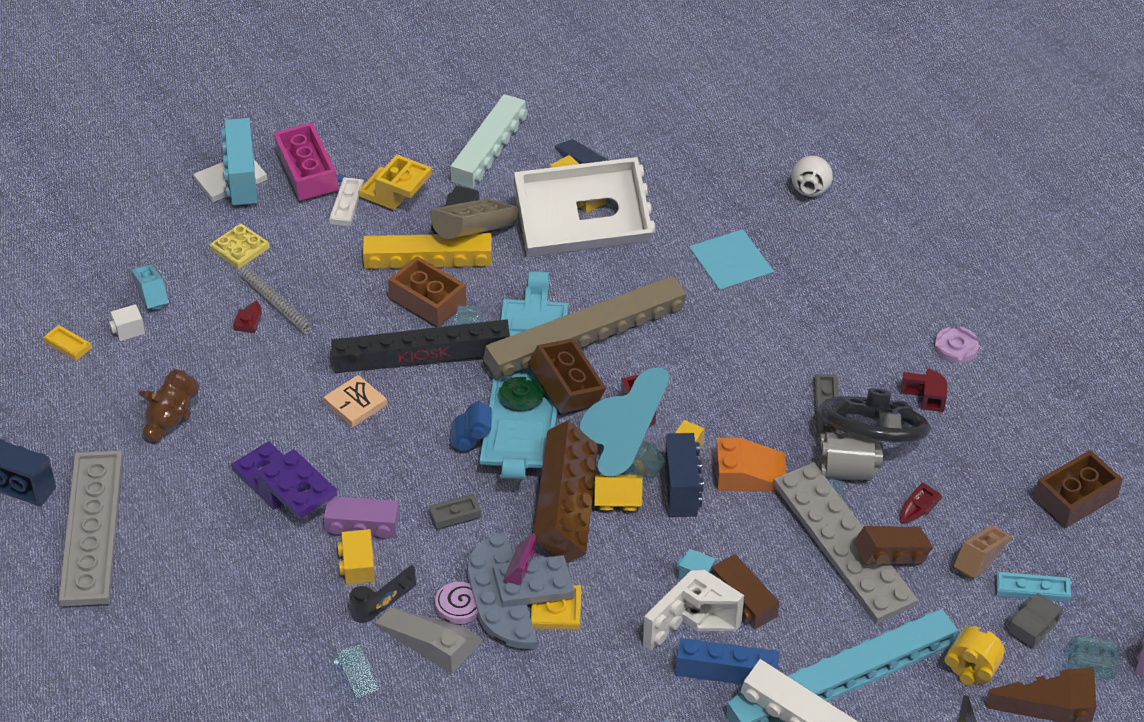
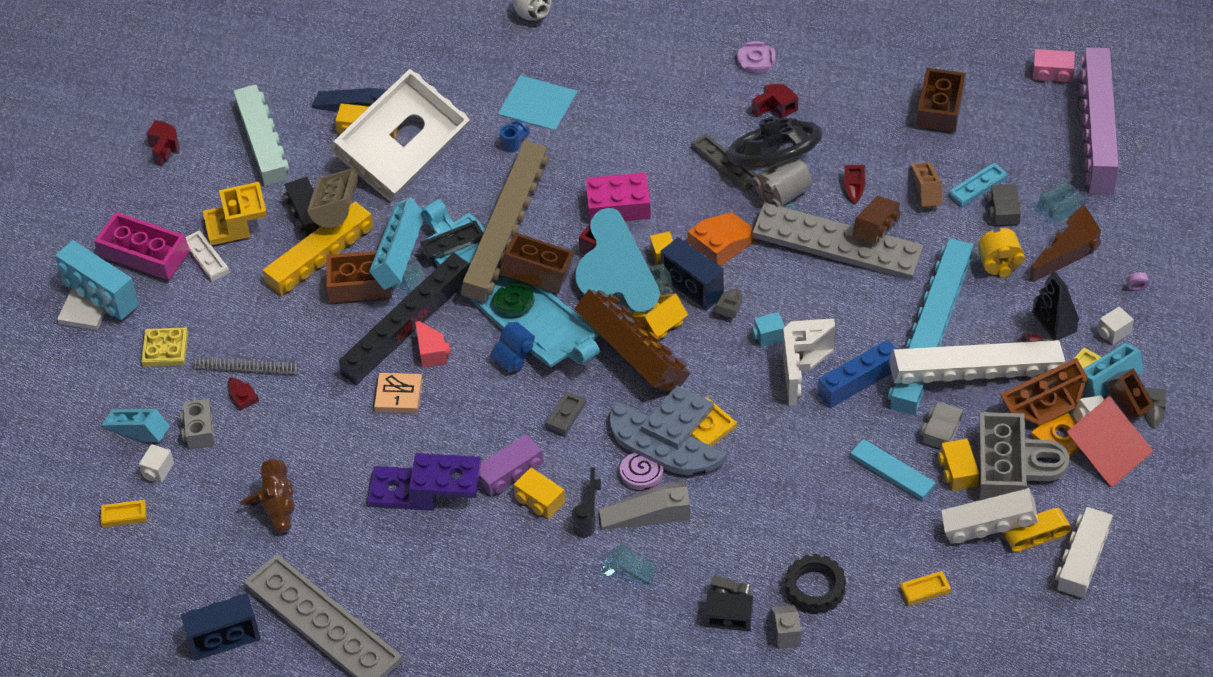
camera: 40 degrees left, 5 degrees up
(189, 316) = (198, 424): none -> light grey brick
(415, 101) = (163, 140): none -> dark red brick
(416, 382) = (431, 346): none -> coral slope
(474, 283) = (397, 244): none -> medium azure brick
(521, 560) = (661, 407): magenta slope -> none
(524, 312) = (452, 240): none -> black tile
(675, 266) = (513, 134): none -> blue piece
(690, 523) = (729, 303): none -> dark grey plate
(700, 374) = (621, 192): none -> dark pink brick
(759, 603) = (809, 311): reddish brown brick -> none

